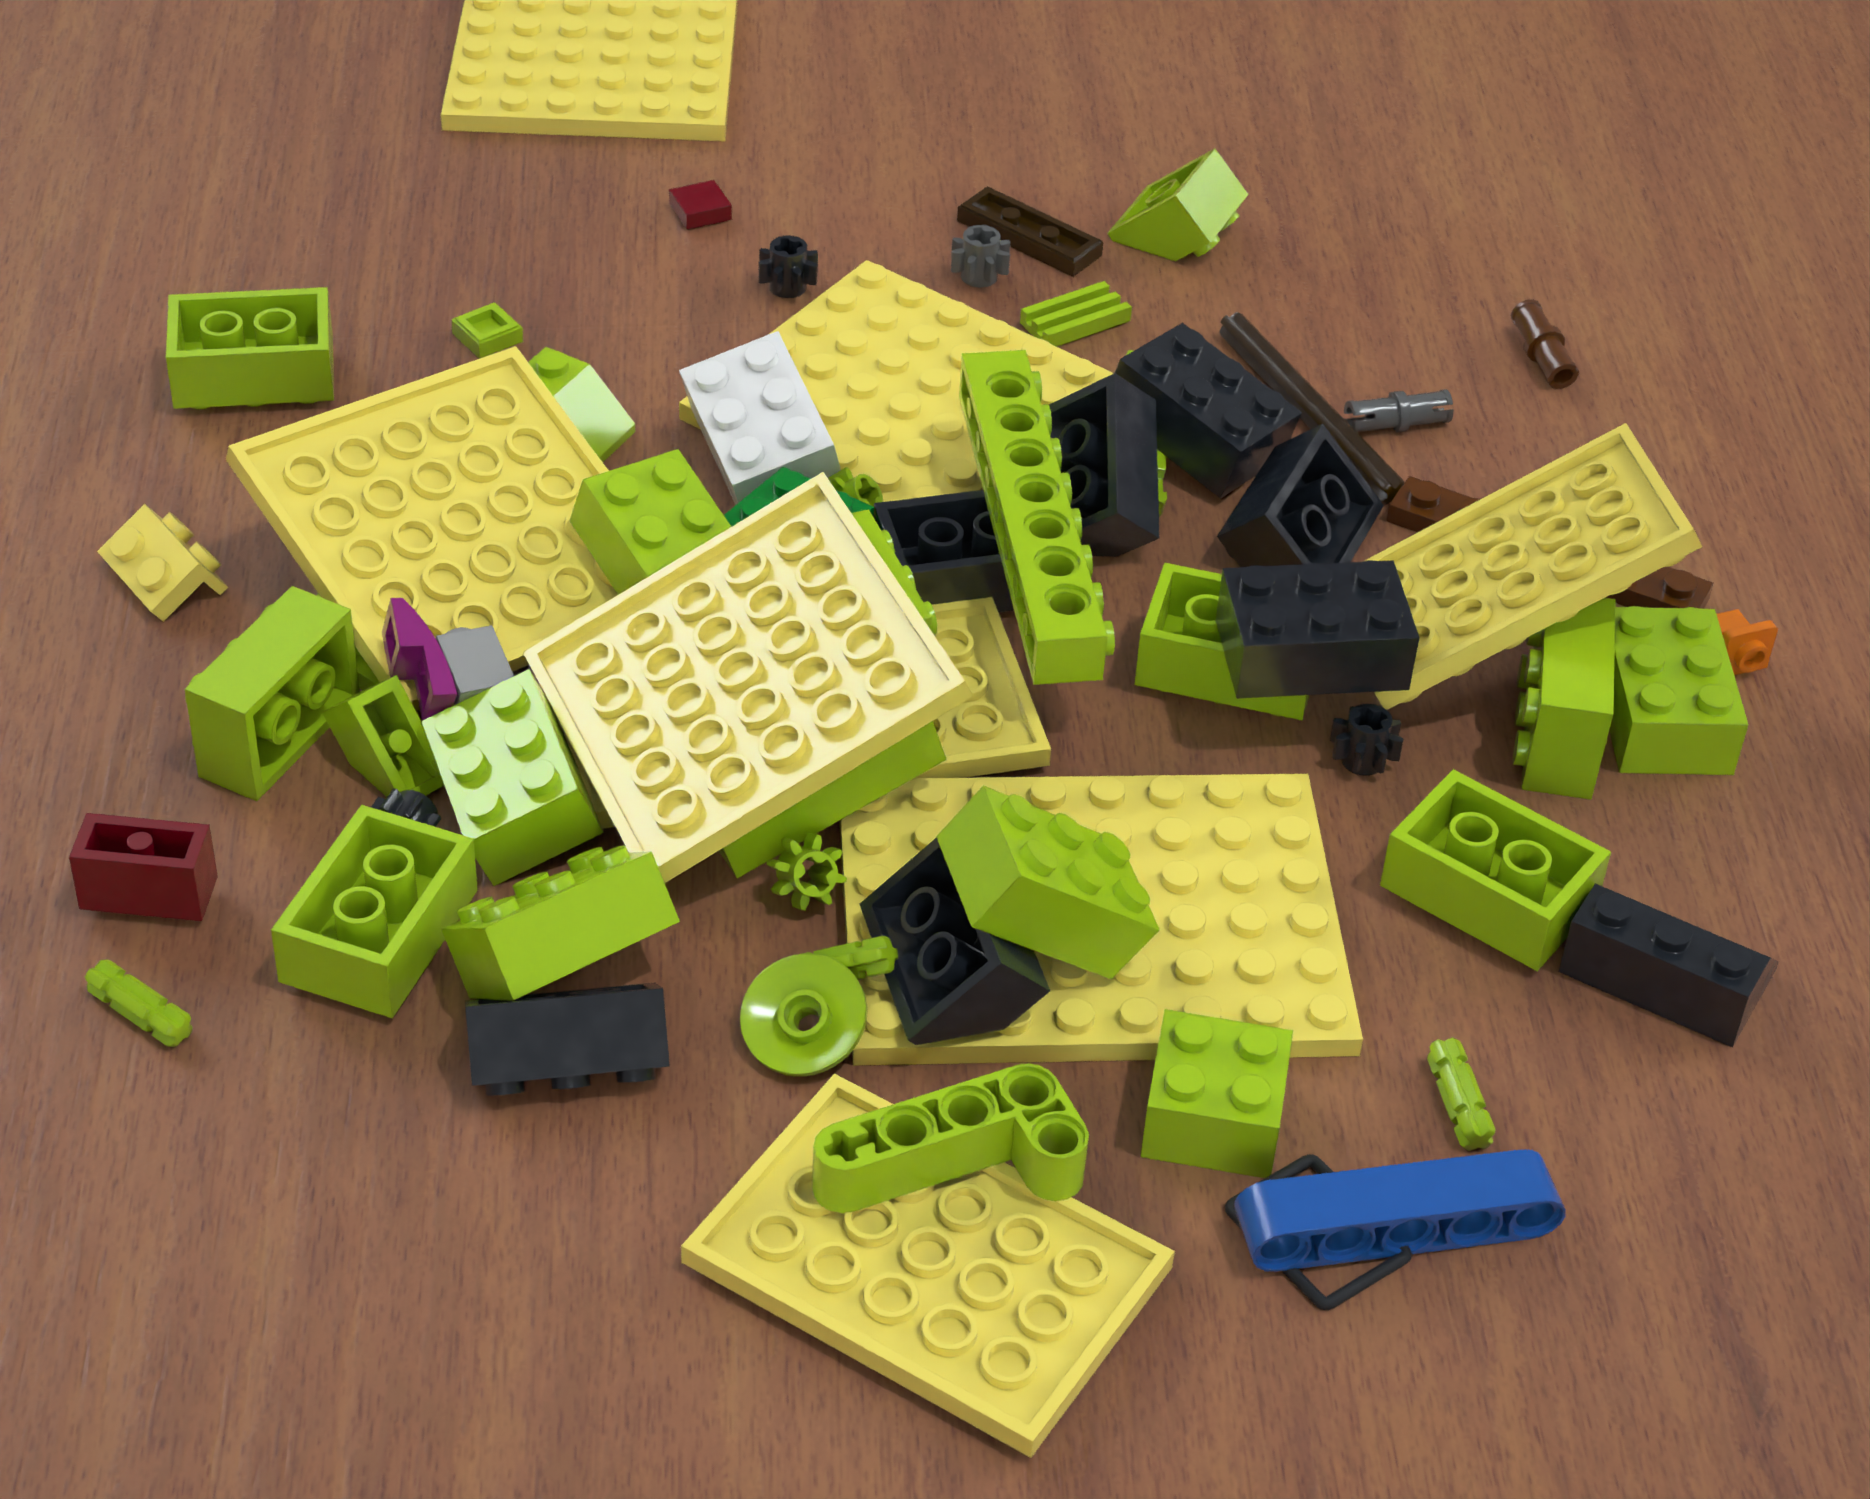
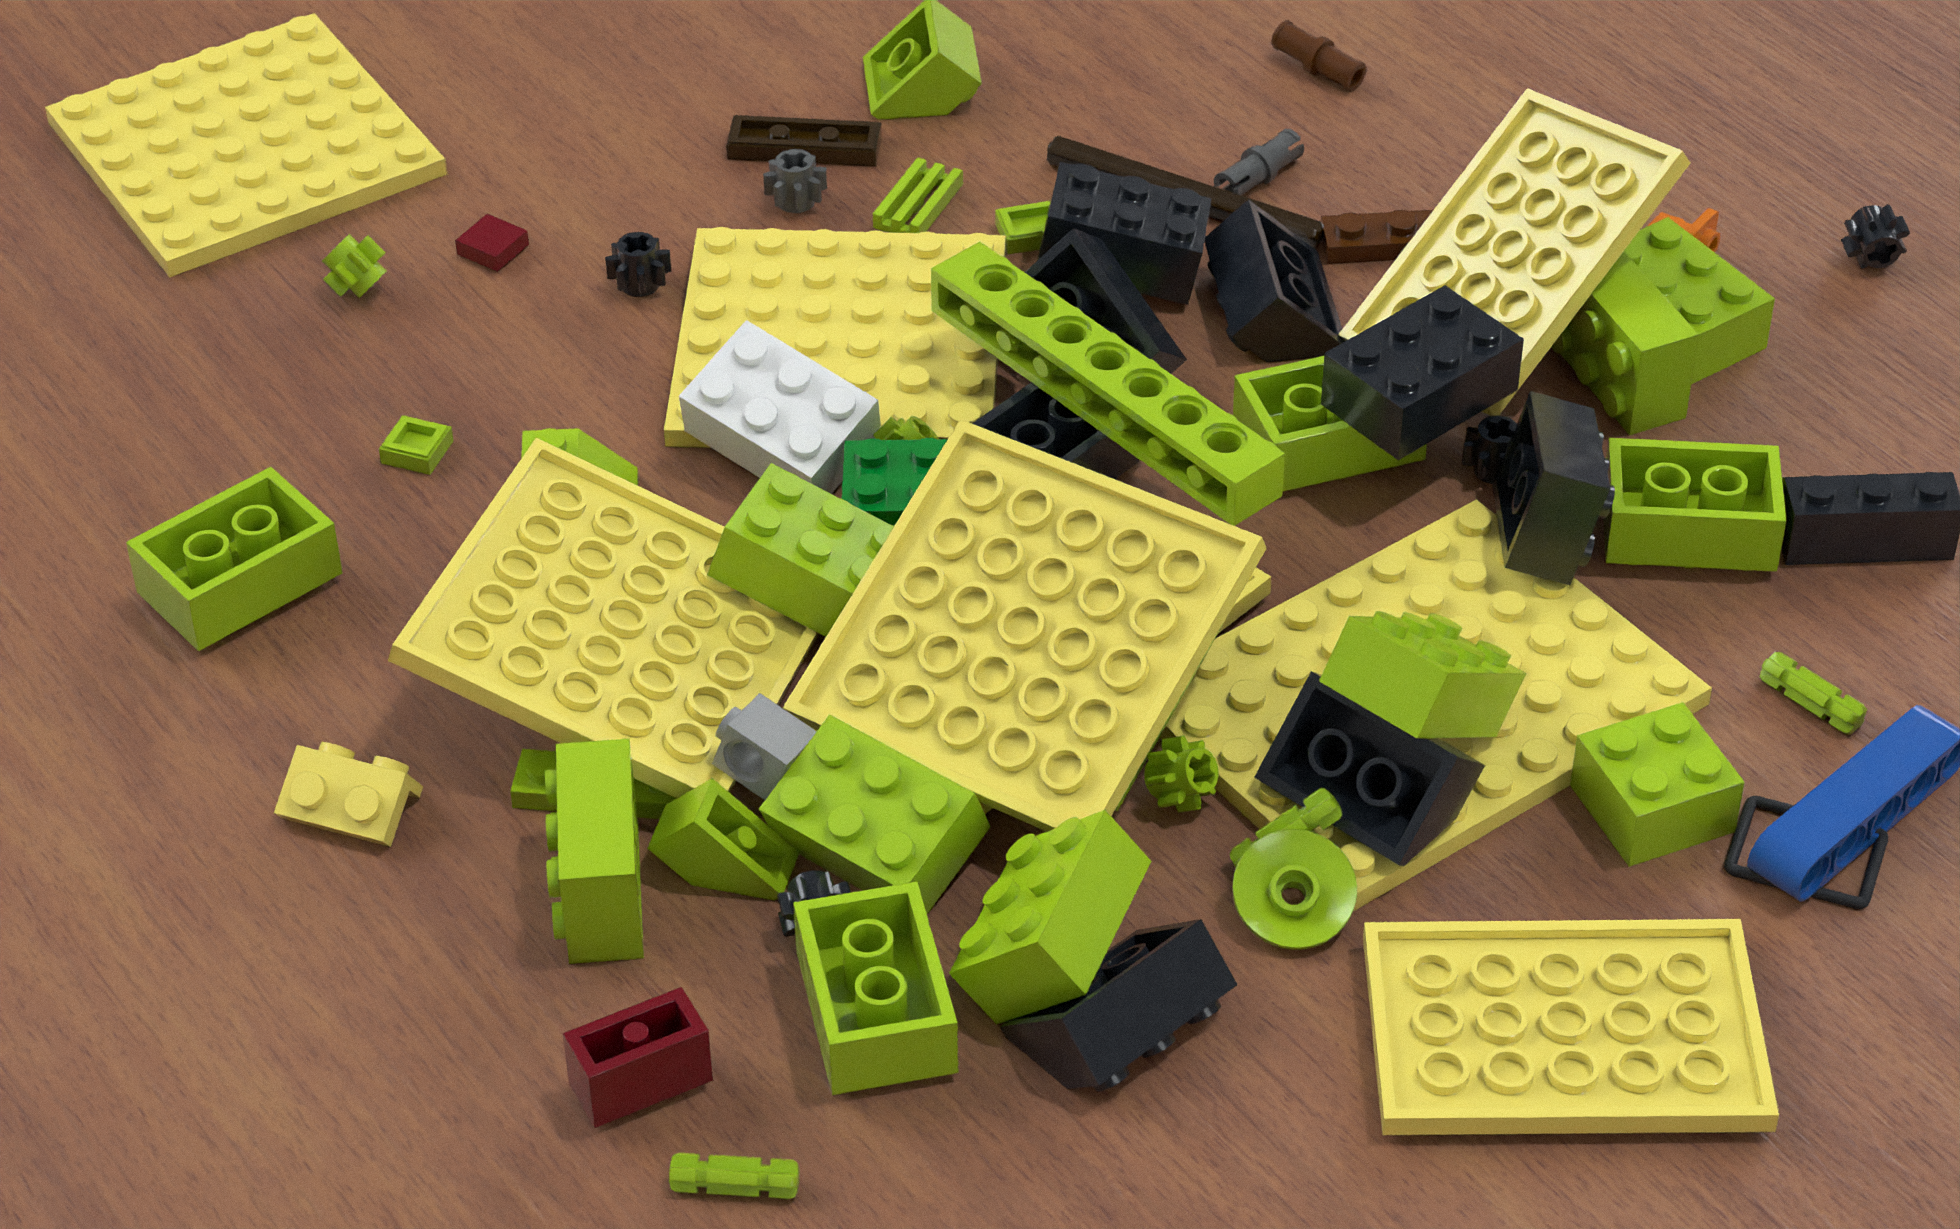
camera: 30 degrees left, 0 degrees up
(416, 656) = (707, 749): magenta slope -> none
(567, 174) = (354, 265): none -> lime gear
(952, 1133) = (1544, 878): lime beam -> none
(1352, 787) = (1552, 489): none -> black brick

